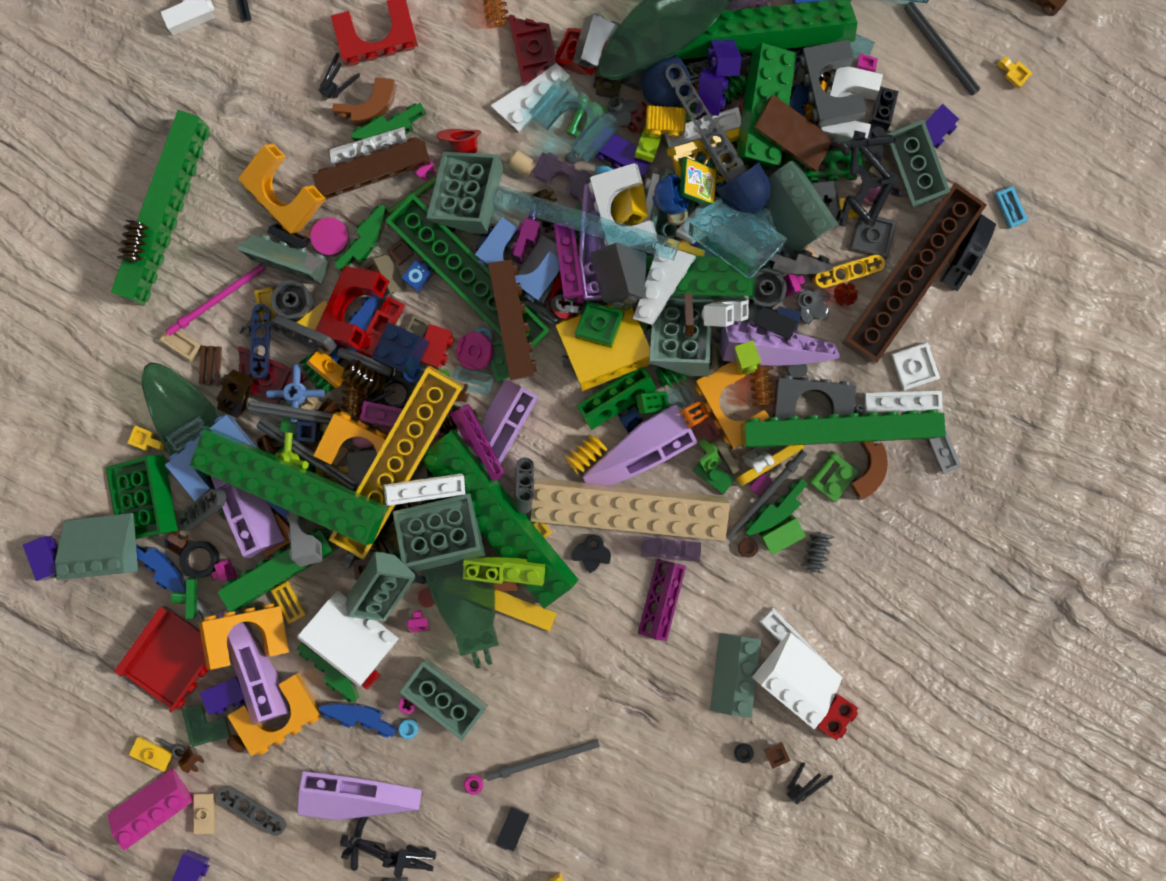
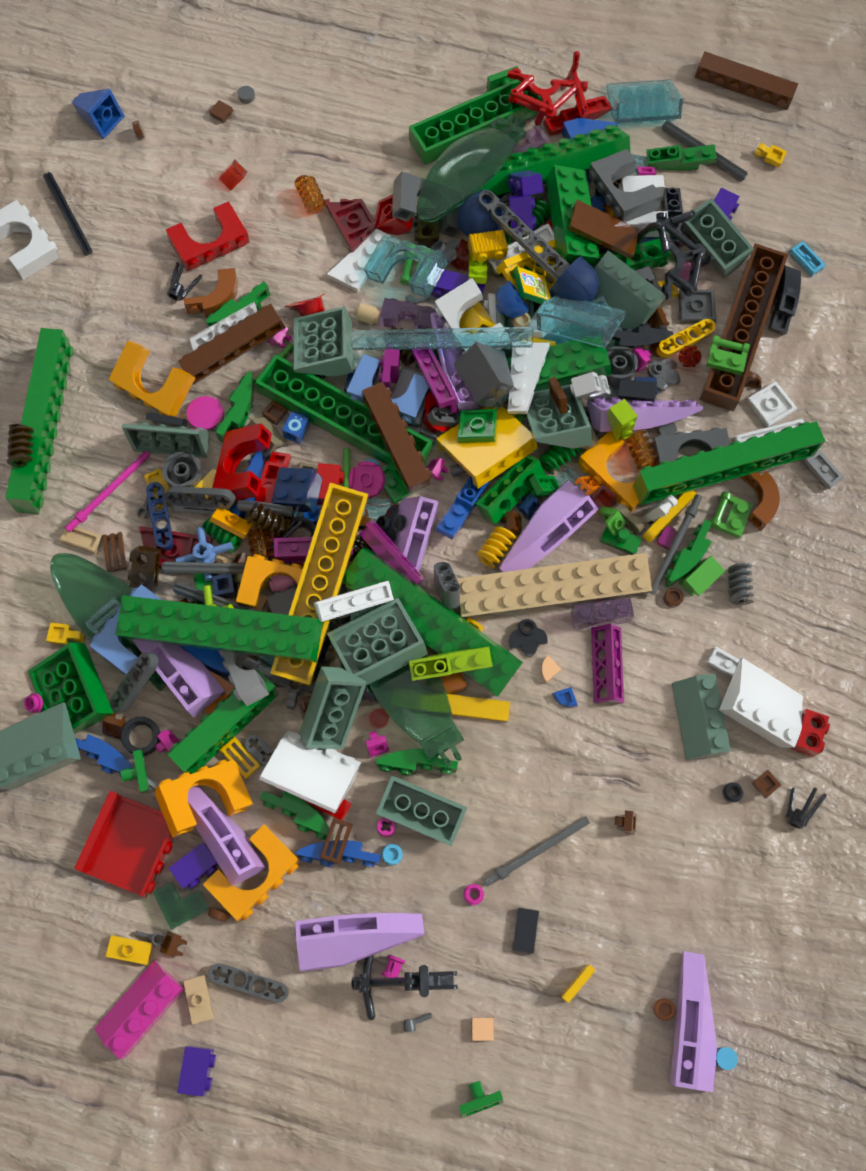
camera: 15 degrees left, 15 degrees down
(105, 501) = (33, 703): none -> dark pink plate
(304, 603) = (258, 754): none -> dark grey beam
(348, 722) = (330, 858): none -> reddish brown tile
(383, 831) = (393, 967): none -> dark pink bush
(443, 647) = (407, 761): none -> green slope
(457, 334) = (346, 466): none -> bright green bar
(487, 404) = (392, 522): none -> black plate
(546, 354) = (435, 467): none -> dark pink tile
(559, 407) = (461, 509): none -> blue slope
(604, 590) = (549, 669): none -> light nougat tile
(609, 433) = (513, 522): none -> reddish brown tile
(612, 621) = (565, 698): none -> blue tile
(635, 756) = (627, 822): none -> reddish brown tile
(824, 245) = (658, 319): none -> reddish brown tile
(879, 314) = (727, 360): none -> bright green plate
(904, 336) = (753, 380): none -> reddish brown tile
(910, 53) = (680, 159): none -> green slope

